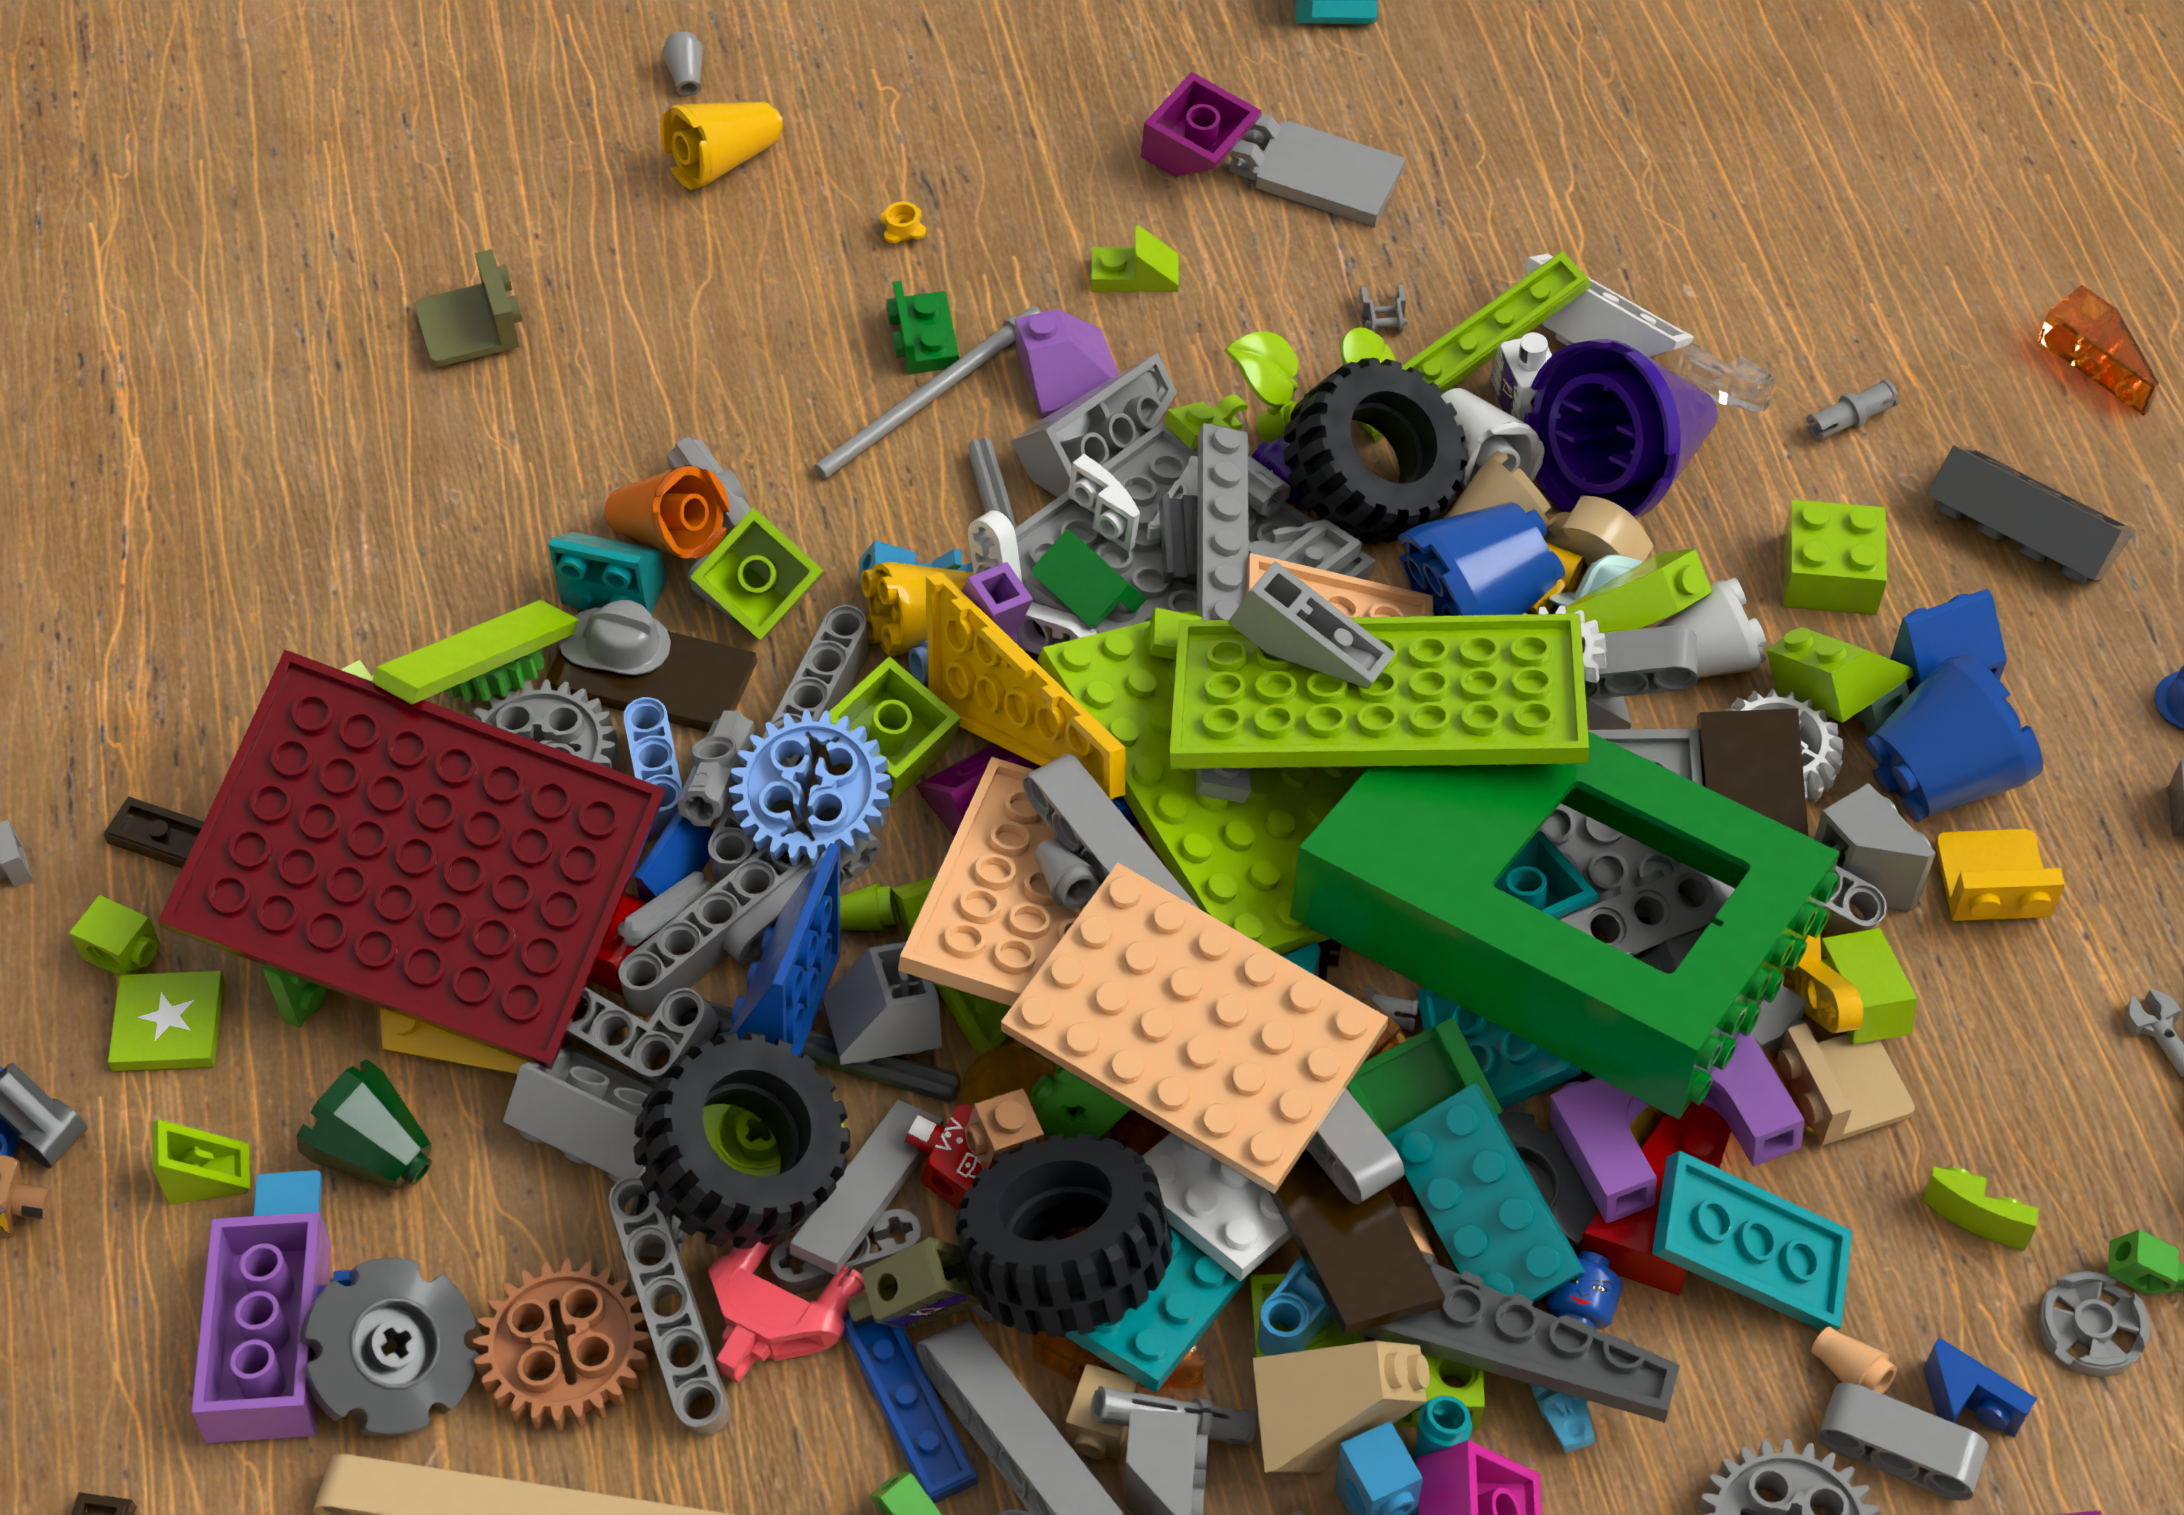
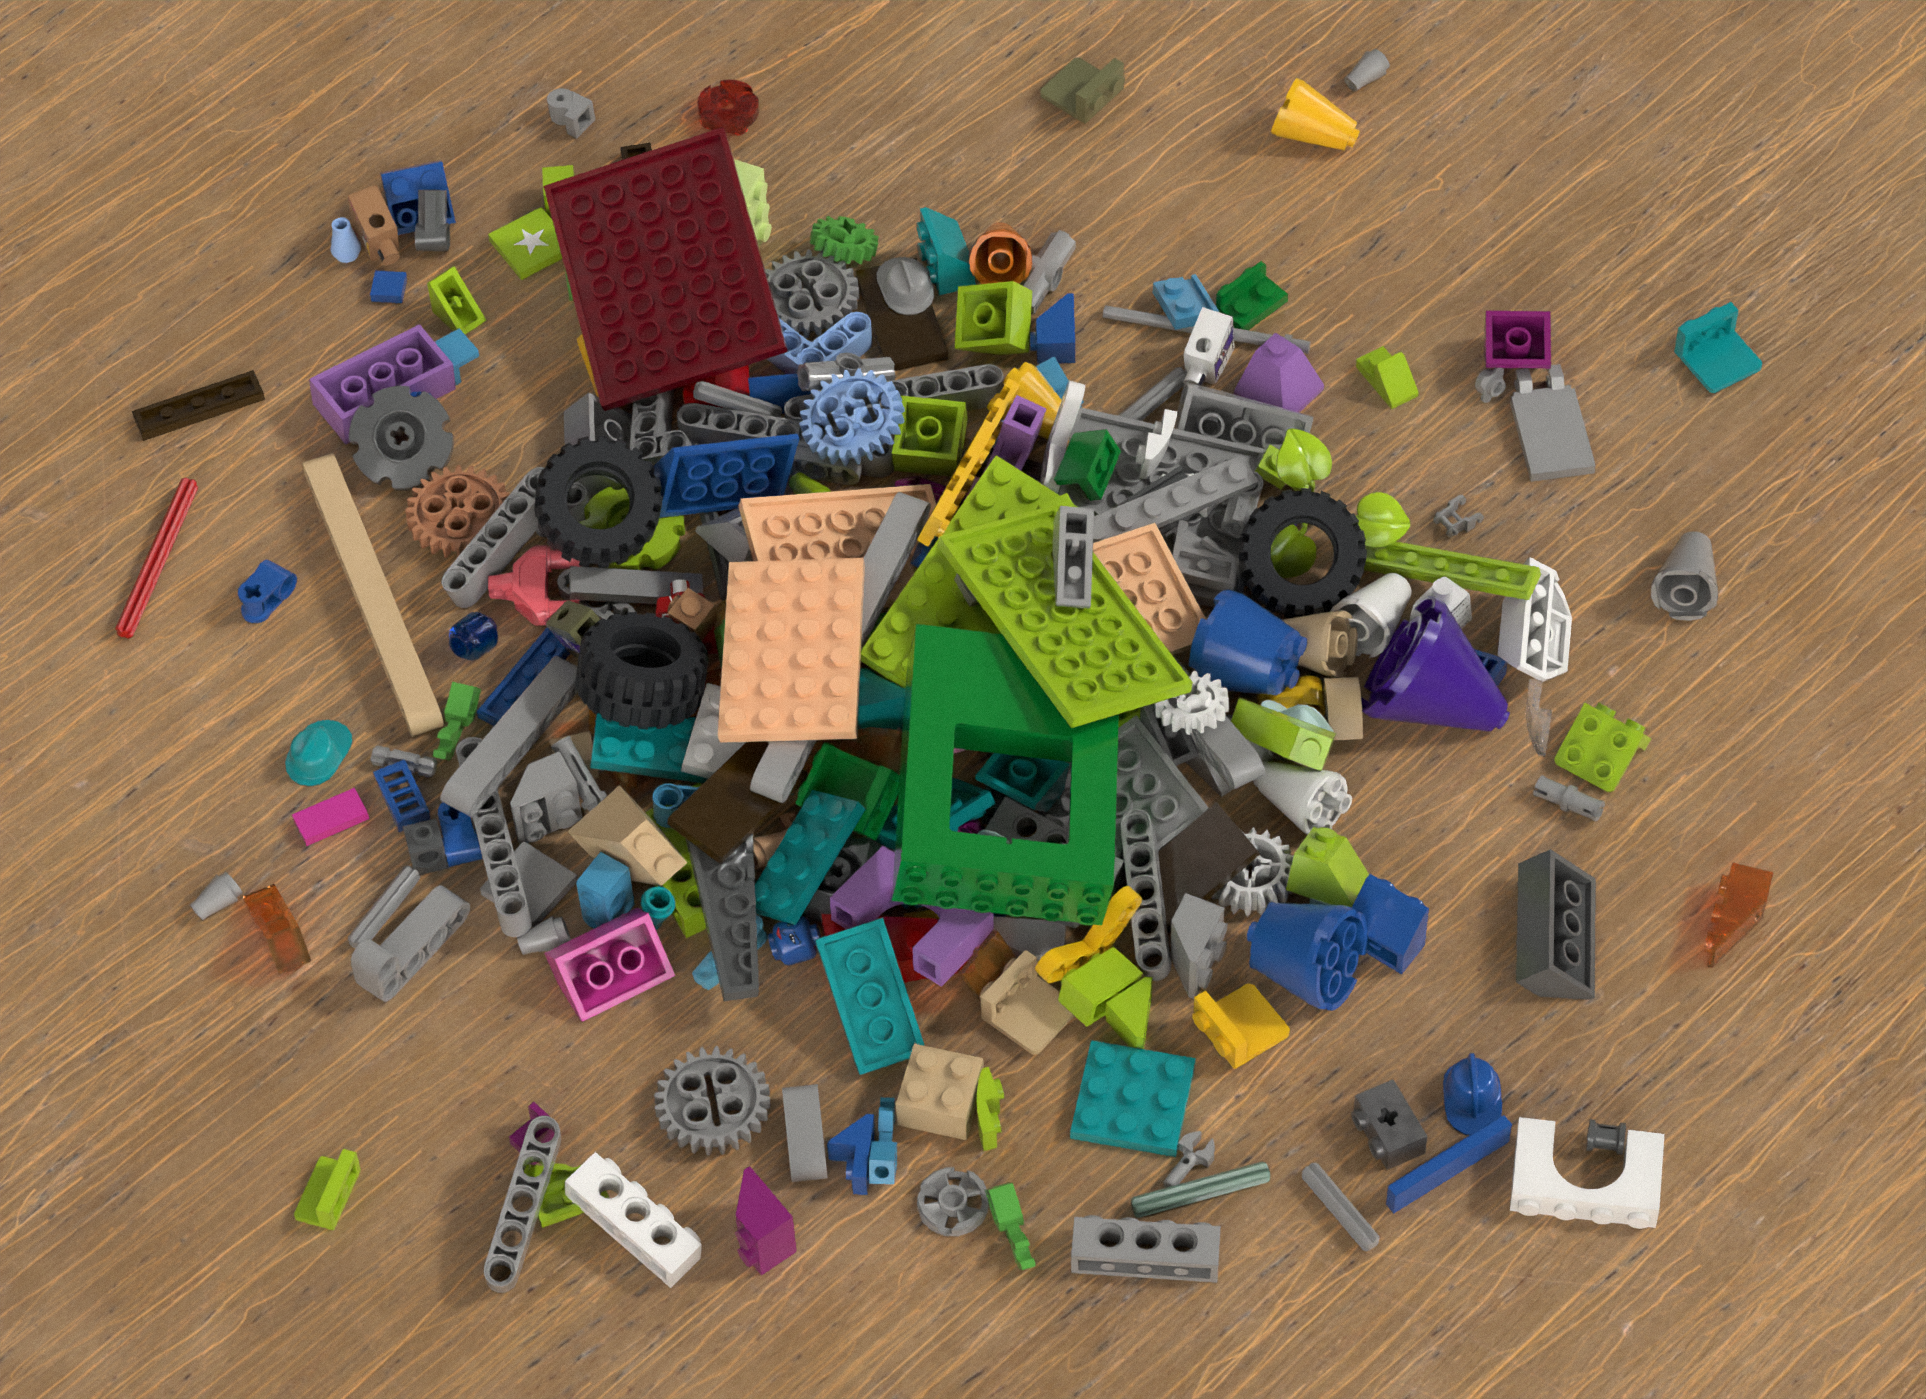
camera: 60 degrees right, 0 degrees up
(83, 1235) = (388, 286): none -> blue tile
(156, 704) = (734, 120): none -> clear red plate
(366, 1131) = (518, 356): dark green cone -> none
(474, 651) = (818, 217): lime tile -> none
(799, 1435) = (473, 636): none -> clear blue head
(825, 526) = (1055, 332): none -> blue slope
(878, 386) = (1182, 300): none -> dark azure plate
(902, 222) = (1327, 245): yellow plate -> none
(977, 394) = (1208, 347): none -> white torso
(1067, 875) = (856, 545): light grey cone -> none
(1224, 185) = (1490, 383): none -> light grey plate
(1627, 155) = (1687, 579): none -> light grey cone
(1802, 345) = (1600, 746): none -> lime bracket
(1834, 557) = (1428, 836): lime brick -> none
(1854, 1360) = (838, 1094): light nougat cone -> none
(1928, 1245) = (939, 1092): none -> tan brick
(1933, 975) = (1130, 1013): none -> lime slope
(2008, 1359) = (884, 1152): none -> dark azure piece
(2037, 1044) = (1133, 1098): none -> teal plate

